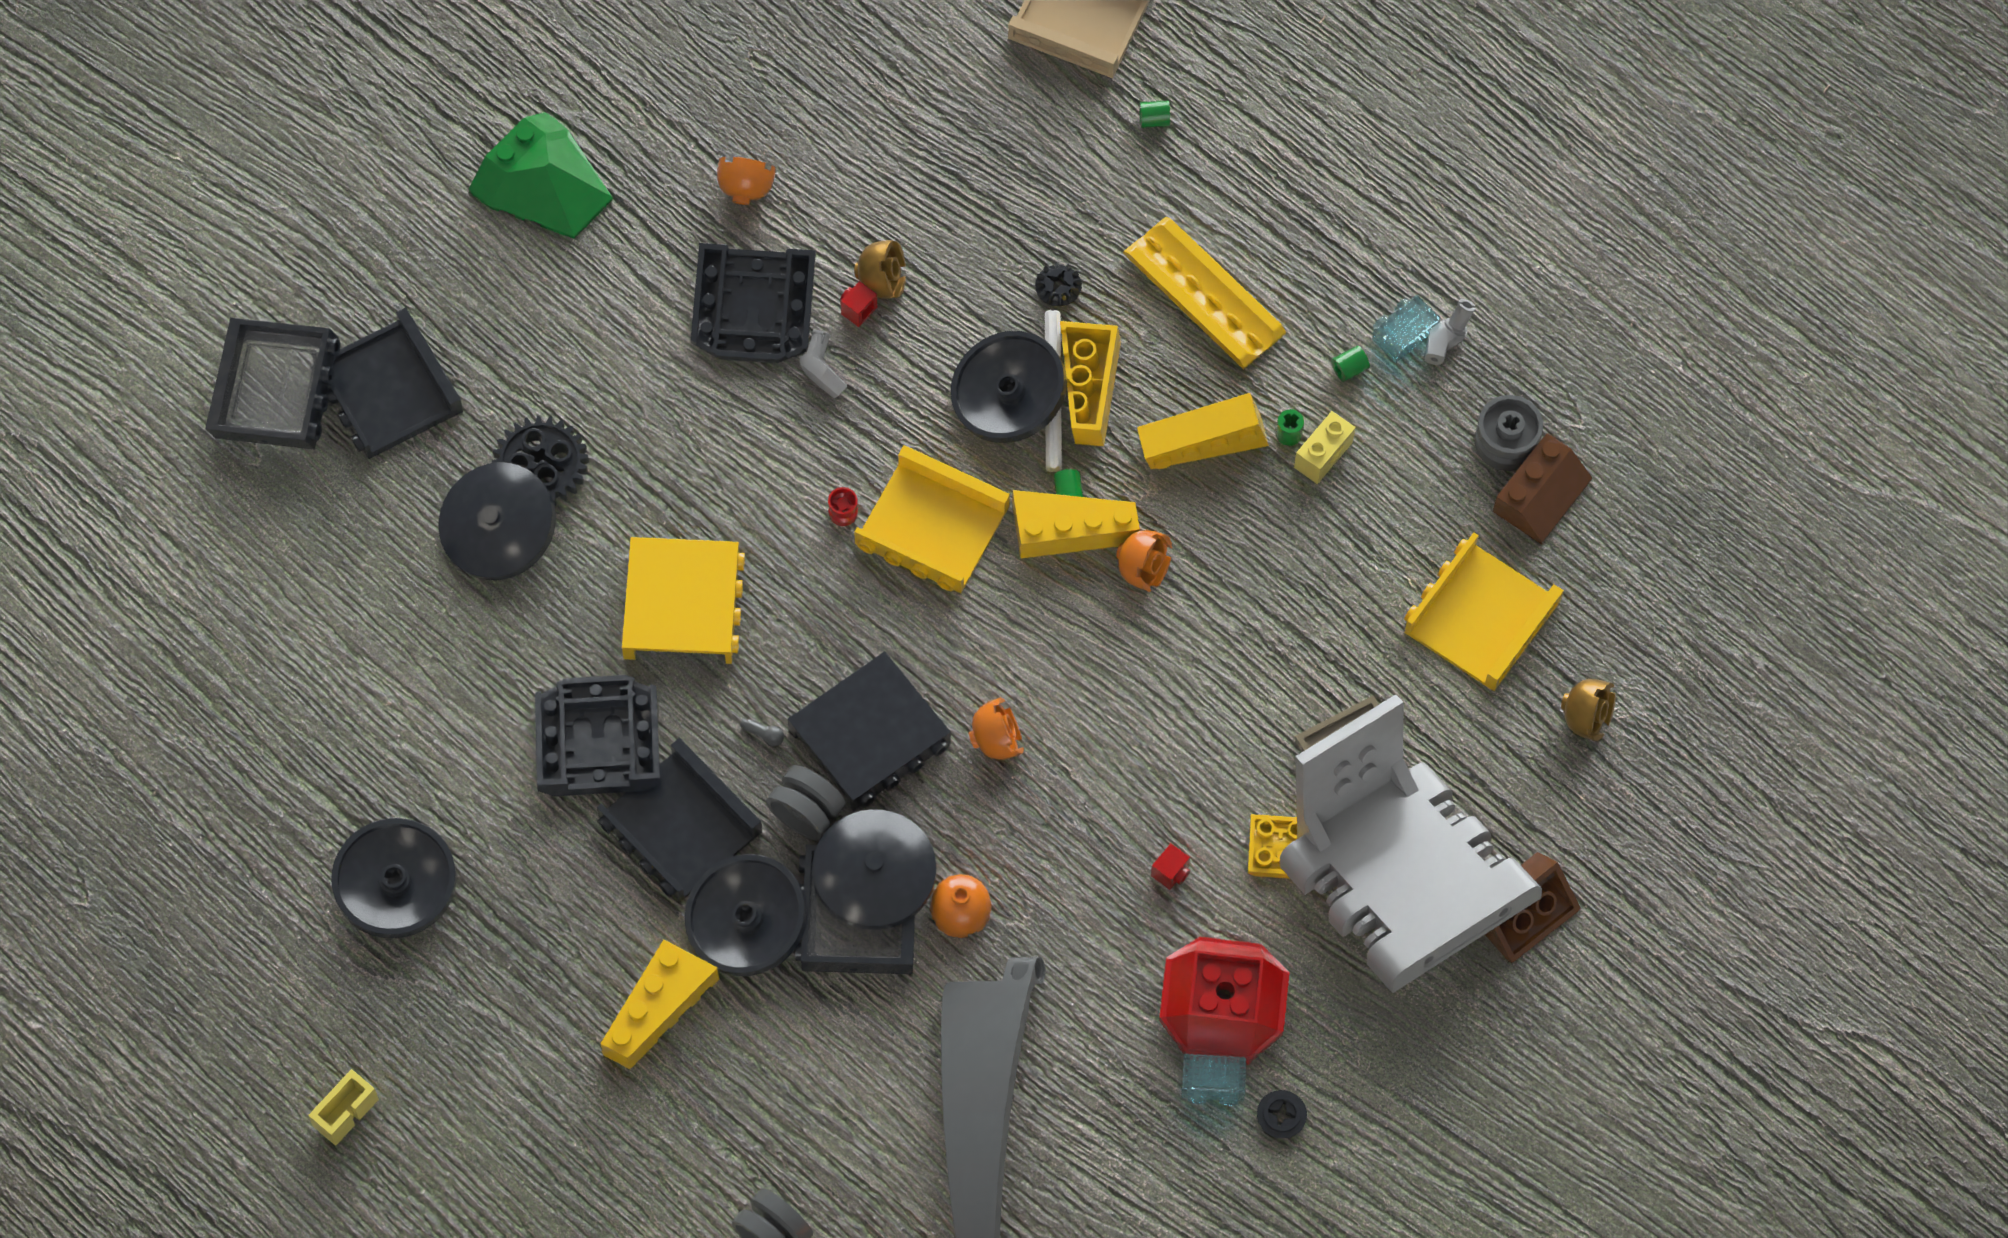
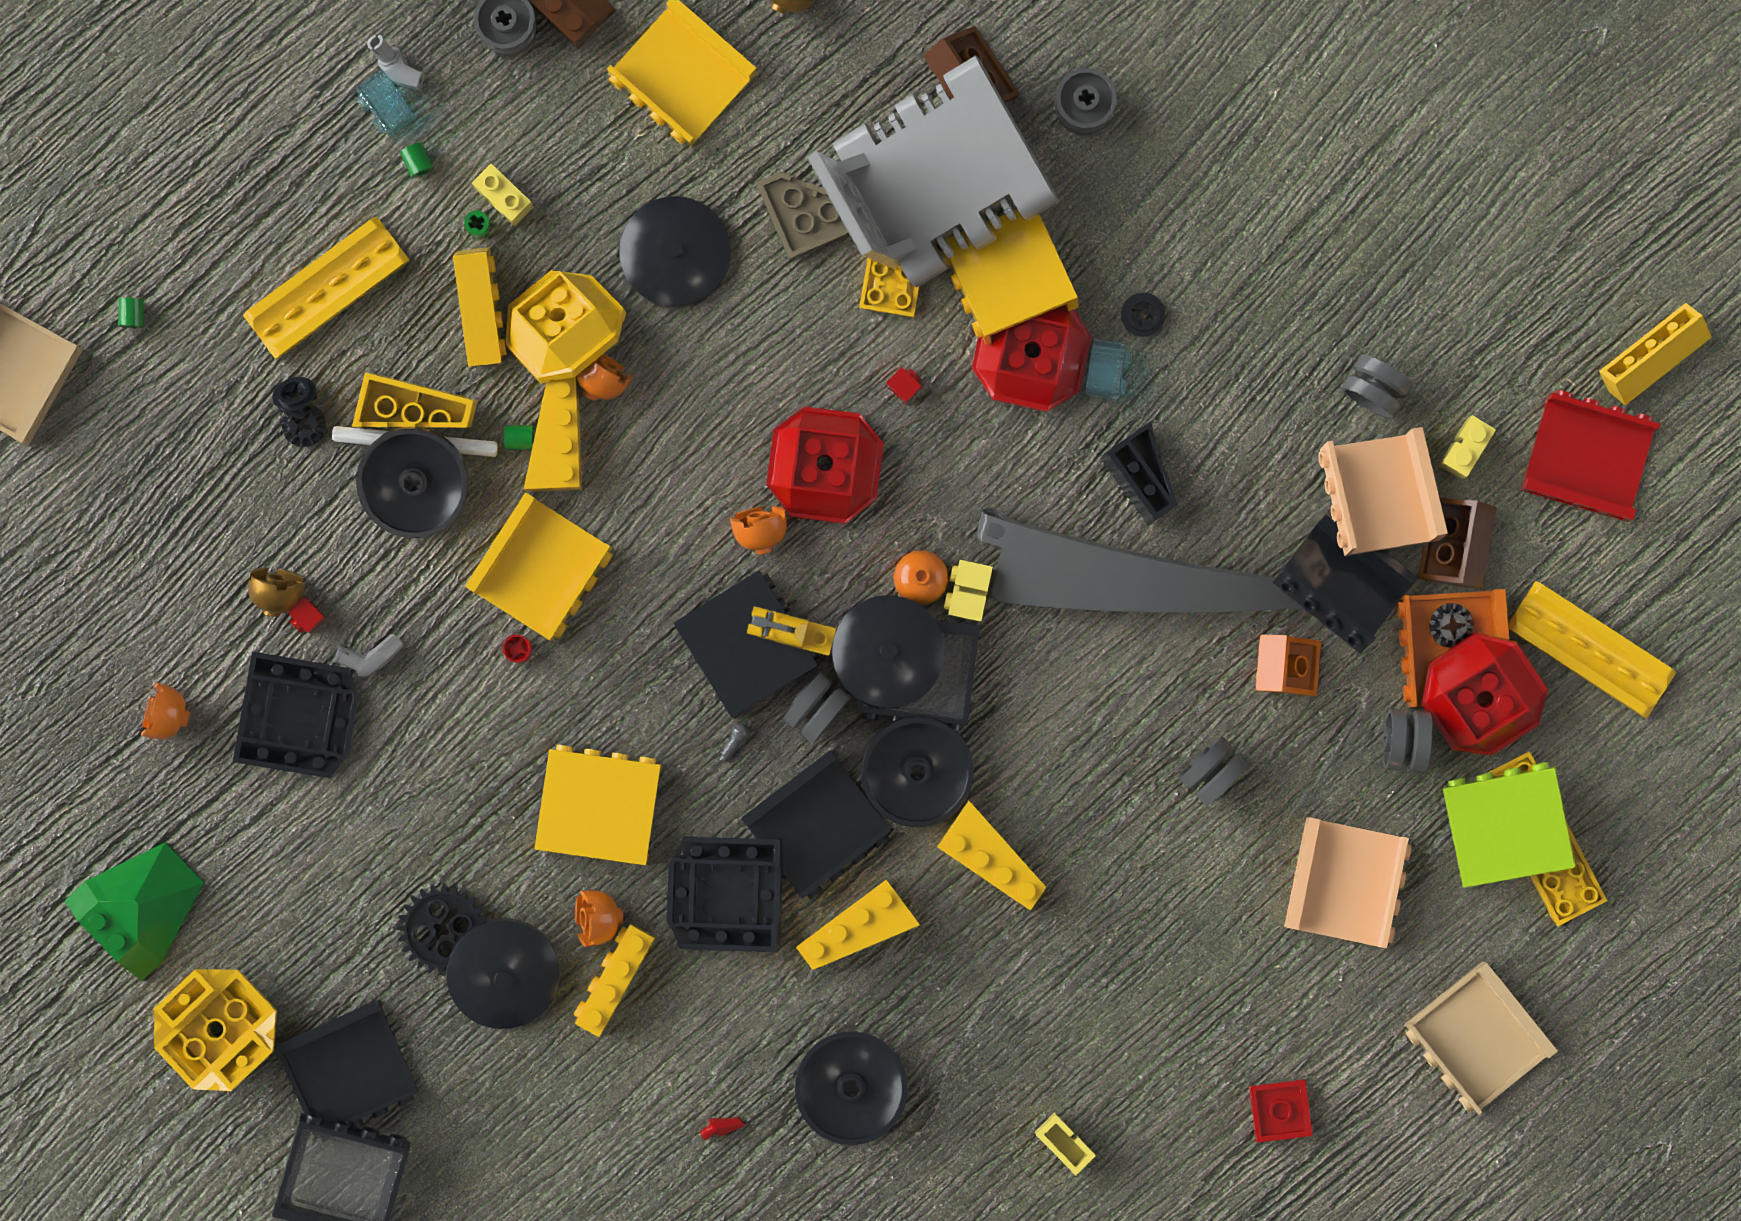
camera: 85 degrees left, 20 degrees up
(345, 756) = (721, 1126): none -> red bar
(416, 227) = (185, 1032): none -> yellow piece
(497, 632) = (615, 980): none -> yellow brick
(562, 608) = (598, 917): none -> orange cylinder
(574, 875) = (863, 924): none -> yellow wedge
(886, 762) = (791, 631): none -> yellow plate
(950, 955) = (969, 591): none -> light yellow piece
(1068, 821) = (829, 494): none -> red piece
(1093, 265) = (288, 389): none -> black gear
(1102, 1123) = (1141, 474): none -> black wedge
(1194, 514) = (562, 325): none -> yellow piece
(1287, 625) = (675, 251): none -> black dish
(1306, 962) = (1011, 276): none -> yellow panel
(1512, 1027) = (1089, 85): none -> dark grey wheel

